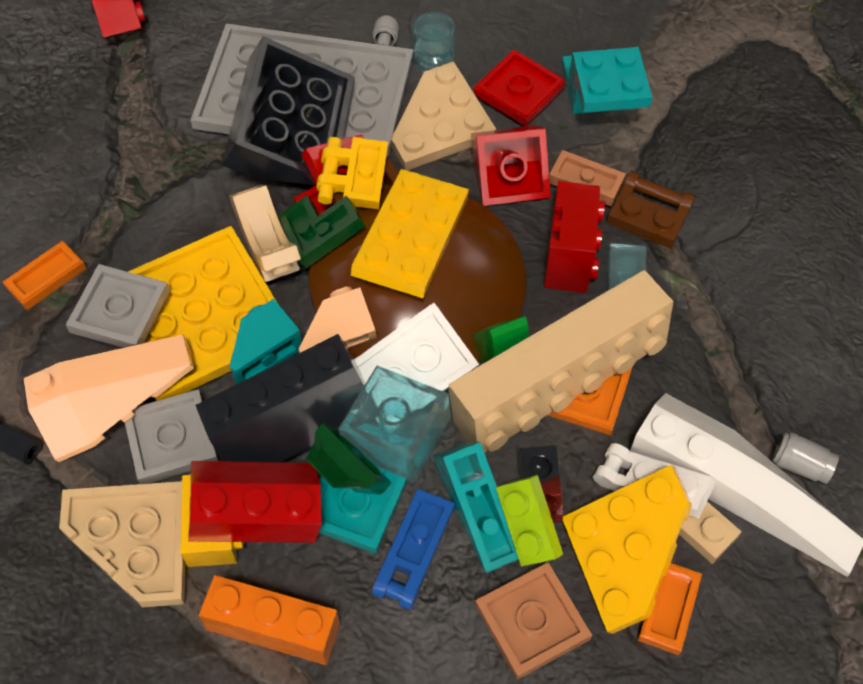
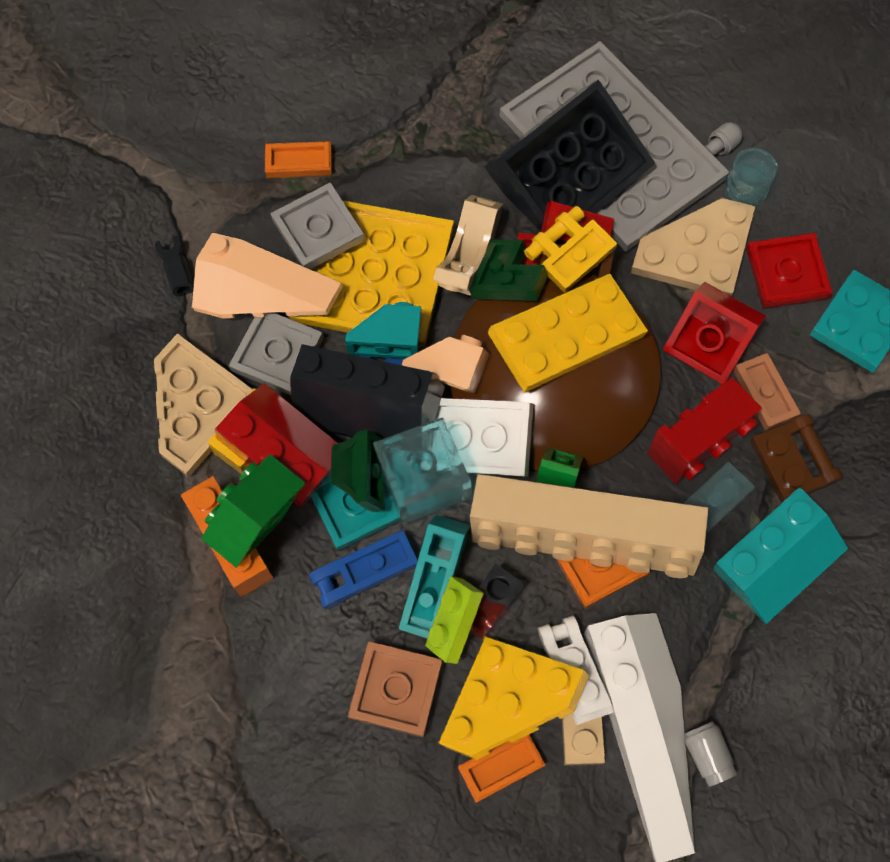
camera: 45 degrees right, 10 degrees up
(286, 564) = (251, 509): none -> green brick
(710, 278) = (781, 556): none -> teal slope

